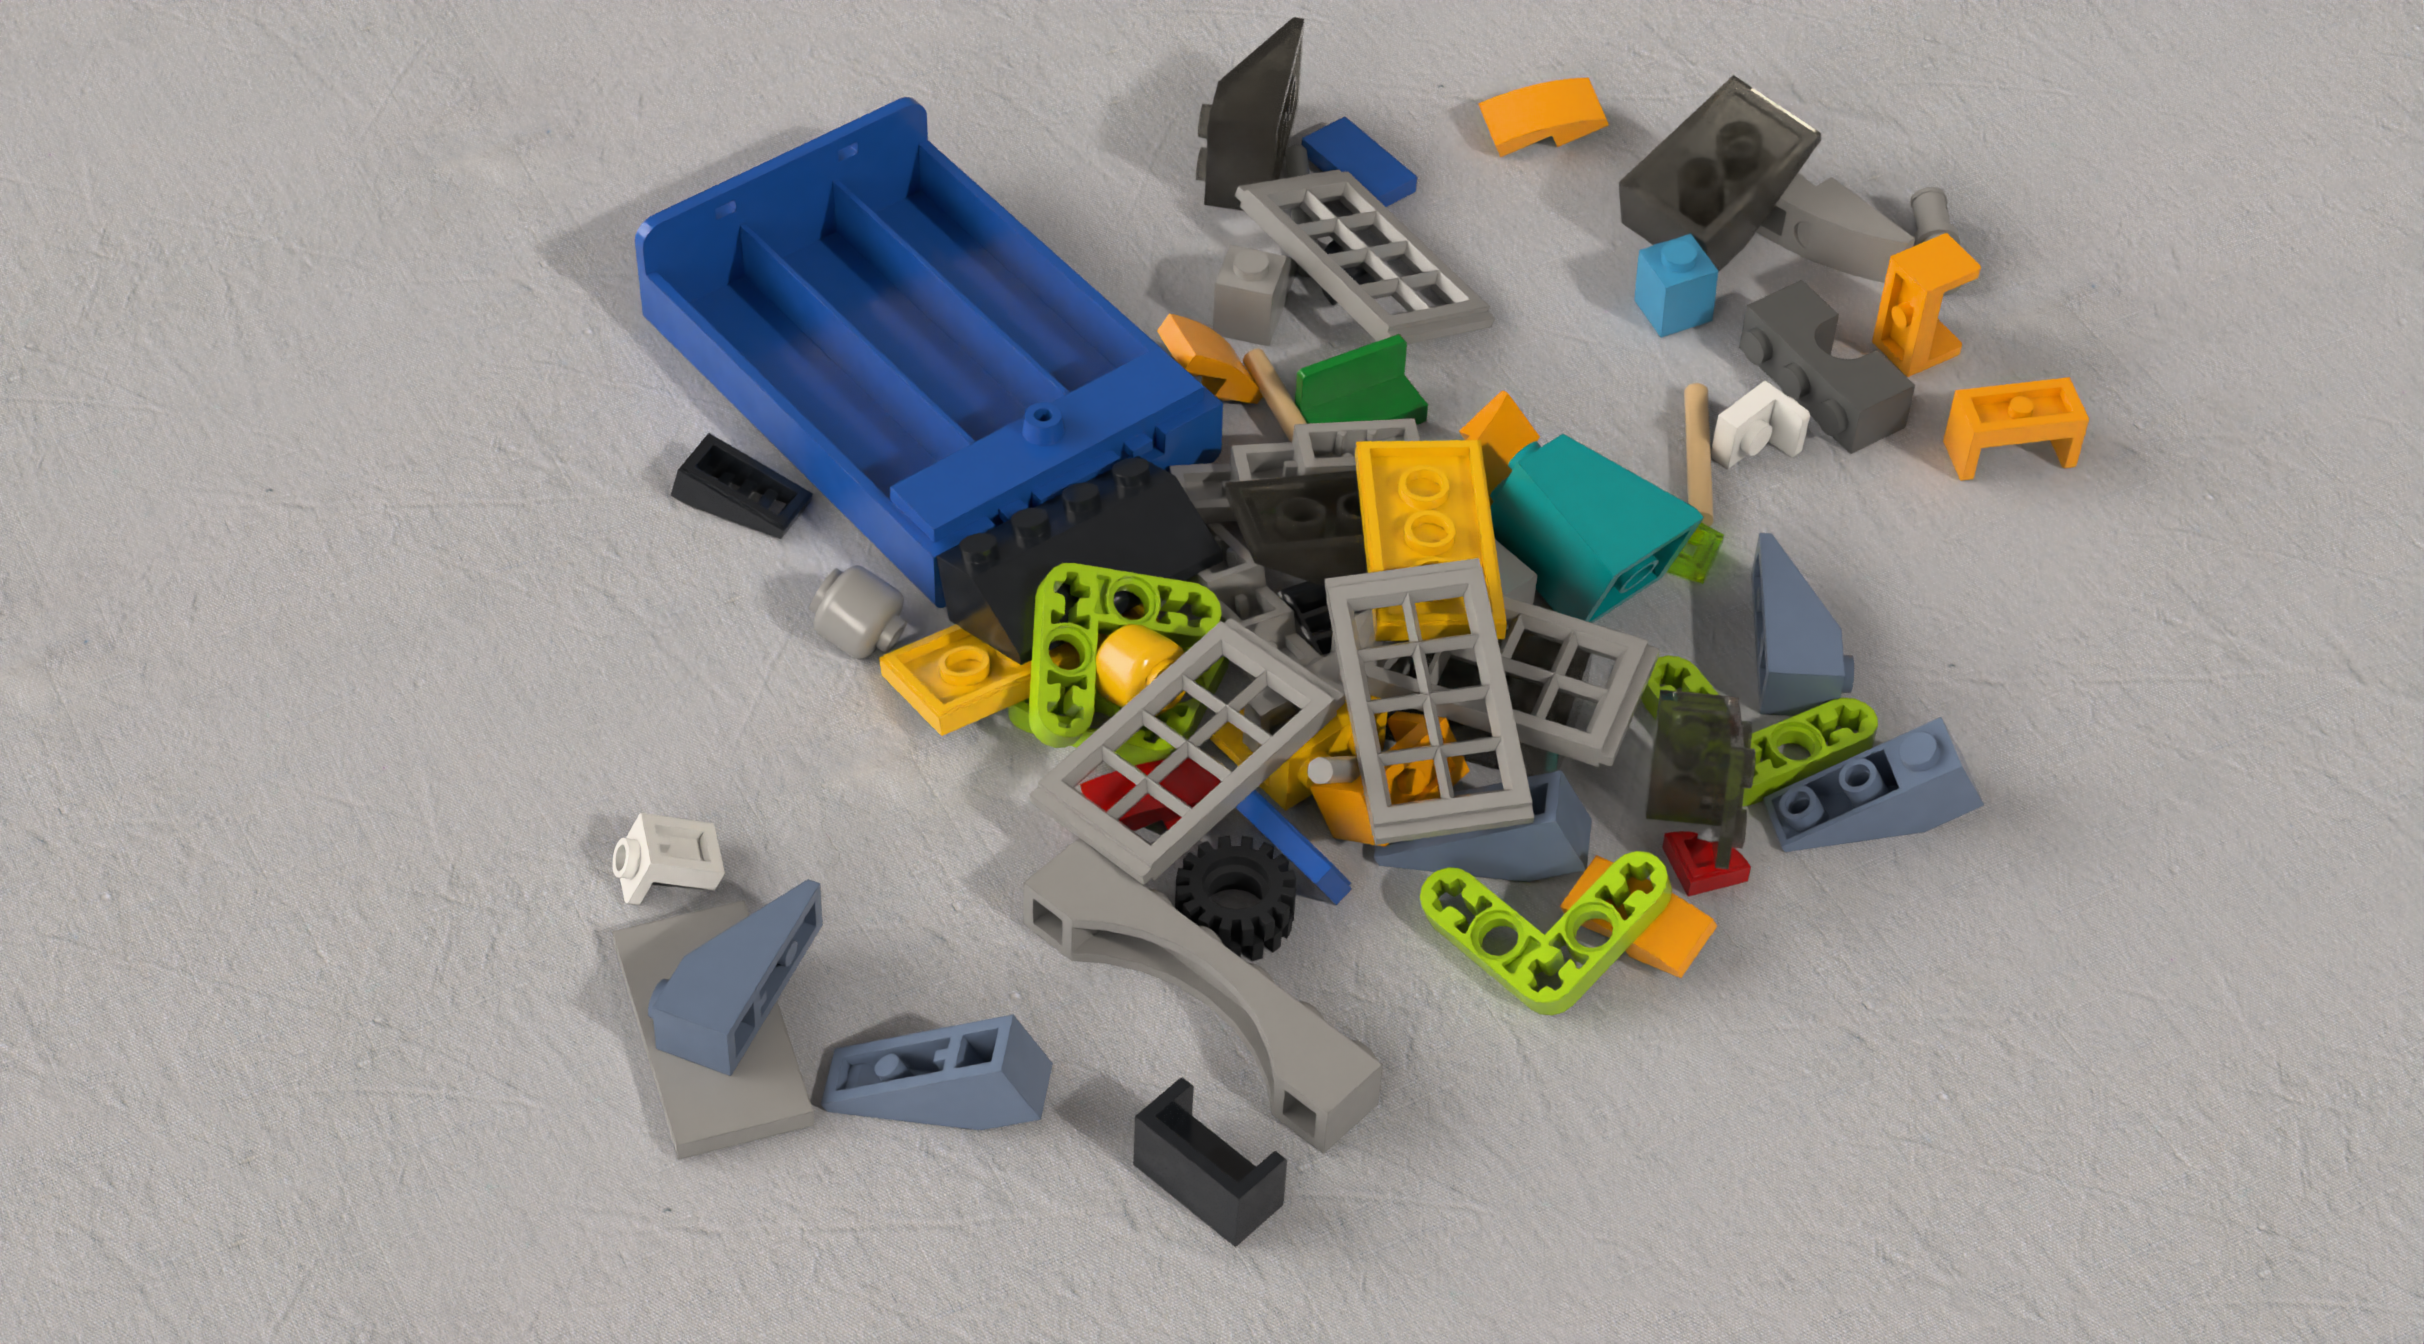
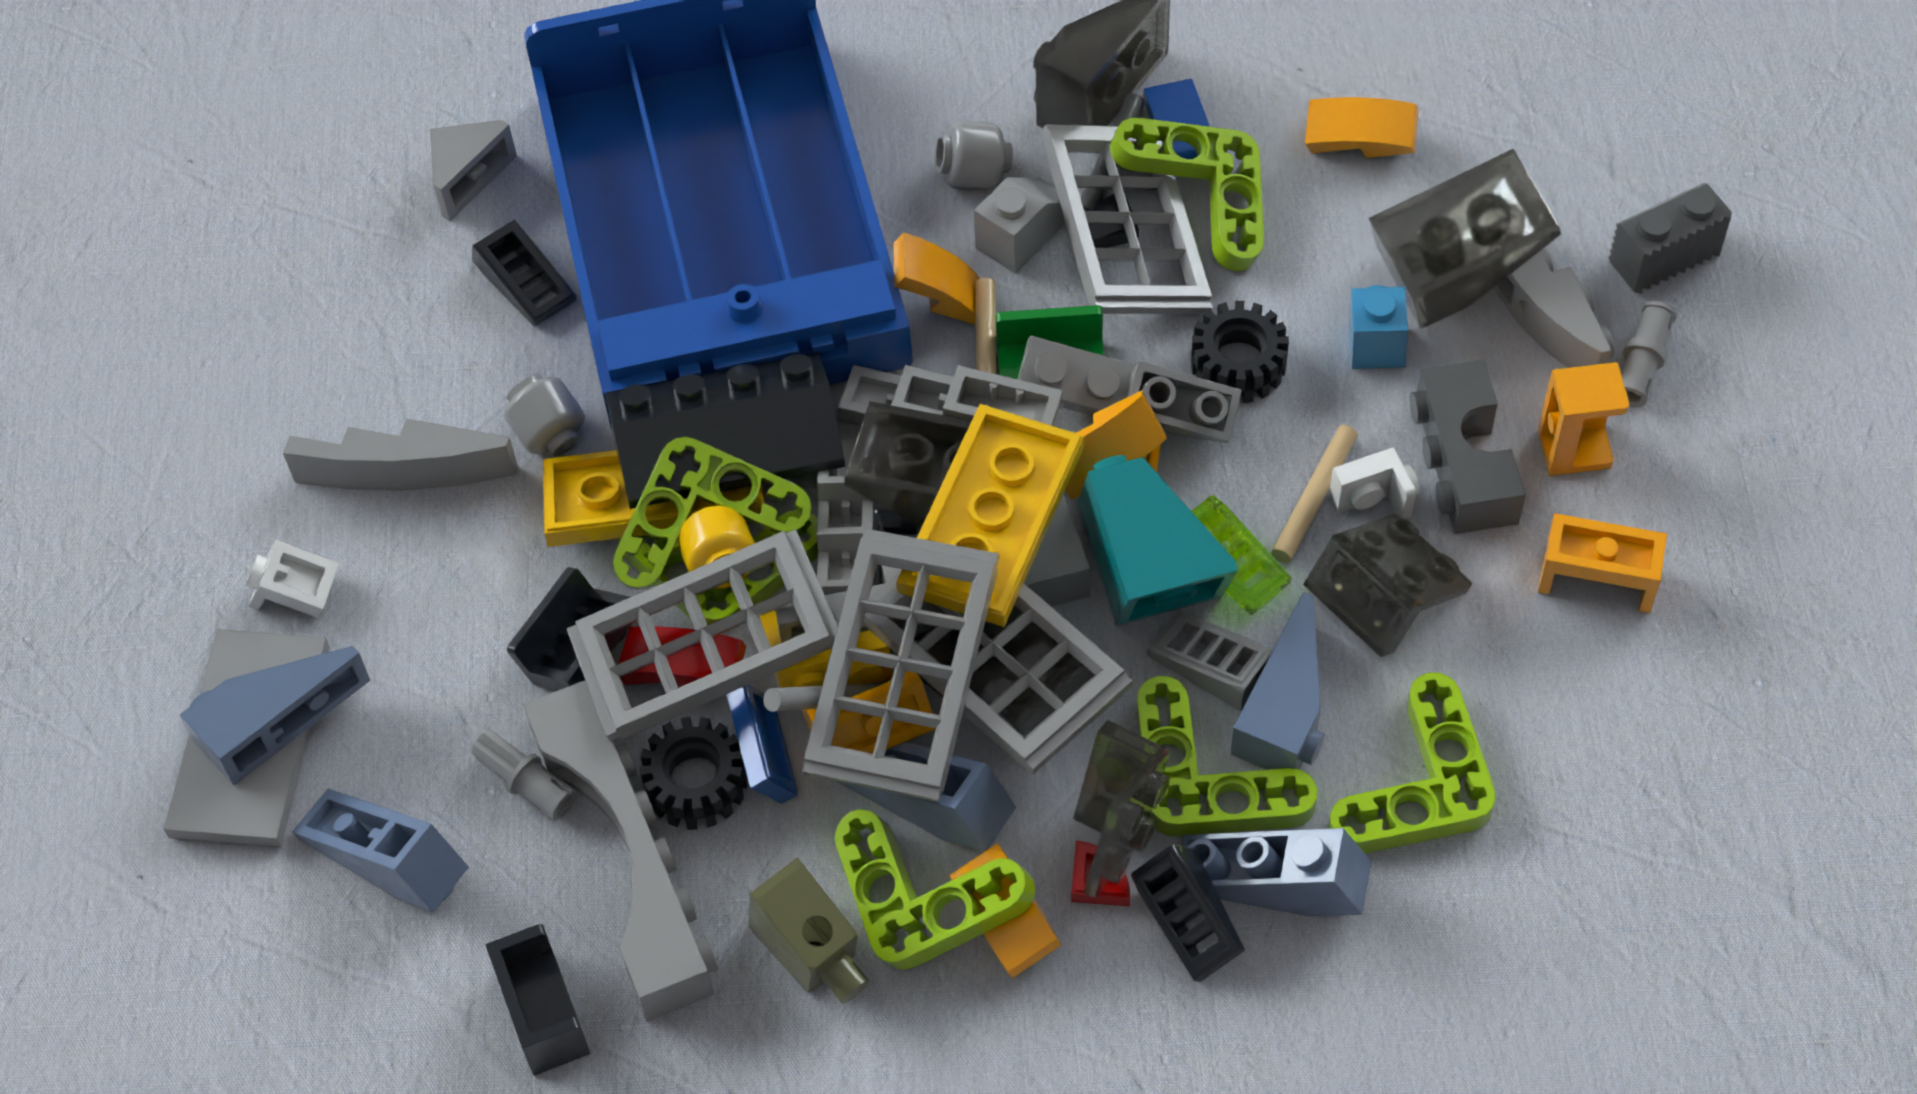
camera: 30 degrees right, 10 degrees up
(609, 394) = (467, 161): none -> light grey slope
(704, 709) = (417, 459): none -> light grey slope
(1004, 824) = (543, 643): none -> black bracket
(1050, 959) = (524, 774): none -> light grey axle
(1166, 242) = (972, 155): none -> light grey head
(1427, 177) = (1211, 164): none -> lime beam
(1442, 407) = (1094, 382): none -> light grey slope
(1457, 998) = (791, 915): none -> olive torso
(1546, 370) = (1247, 328): none -> black tyre
(1727, 624) = (1216, 680): none -> light grey slope
(1774, 825) = (1166, 880): none -> black slope
(1818, 510) = (1382, 579): none -> clear smoke bracket
(1900, 132) = (1670, 237): none -> dark grey brick
(1979, 667) = (1436, 794): none -> lime beam

